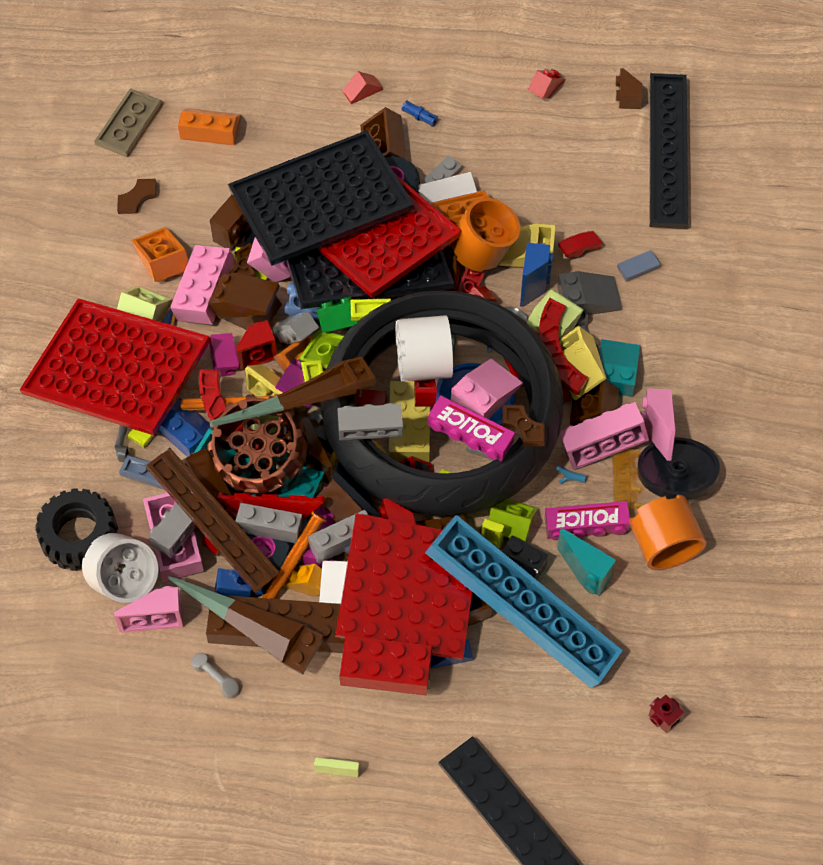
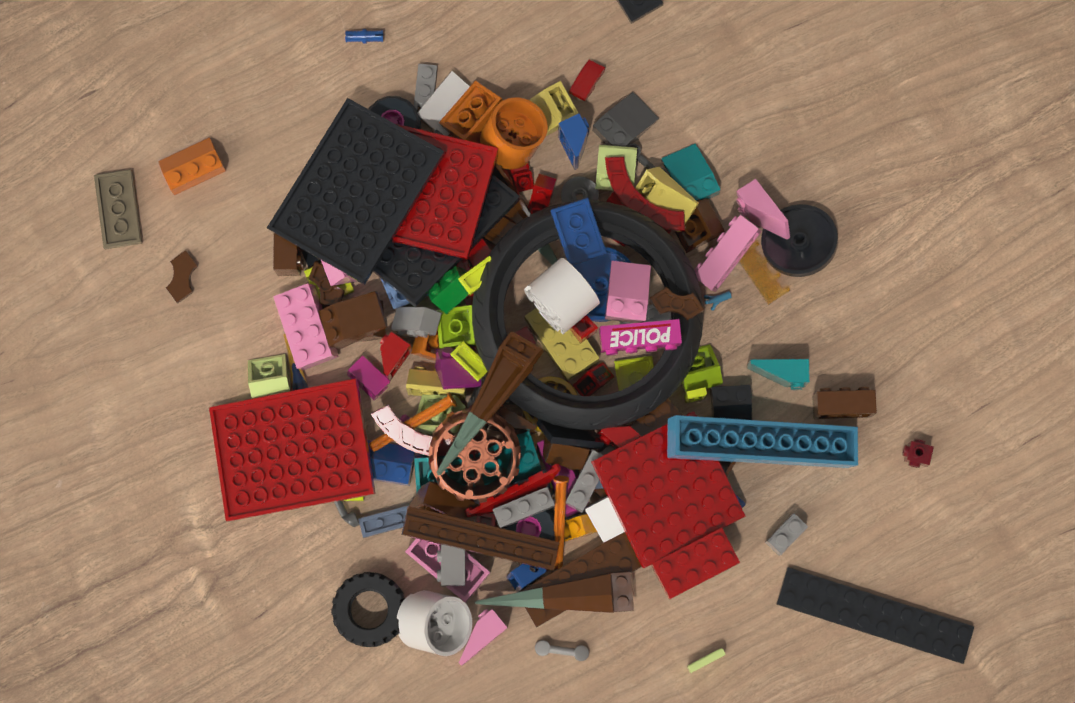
camera: 35 degrees left, 20 degrees up
(161, 254) = (245, 319): orange slope -> none
(361, 86) = (295, 42): red slope -> none
(370, 421) = (558, 384): light grey brick -> none
(386, 132) = (352, 80): reddish brown slope -> none
(478, 319) = (578, 232): none -> blue tile
(491, 705) = (786, 534): none -> light grey brick
(588, 519) = (756, 331): dark pink brick -> none
(624, 624) = (844, 403): none -> reddish brown brick
(638, 265) = (646, 68): sand blue tile -> none
(667, 532) = (830, 306): orange brick -> none

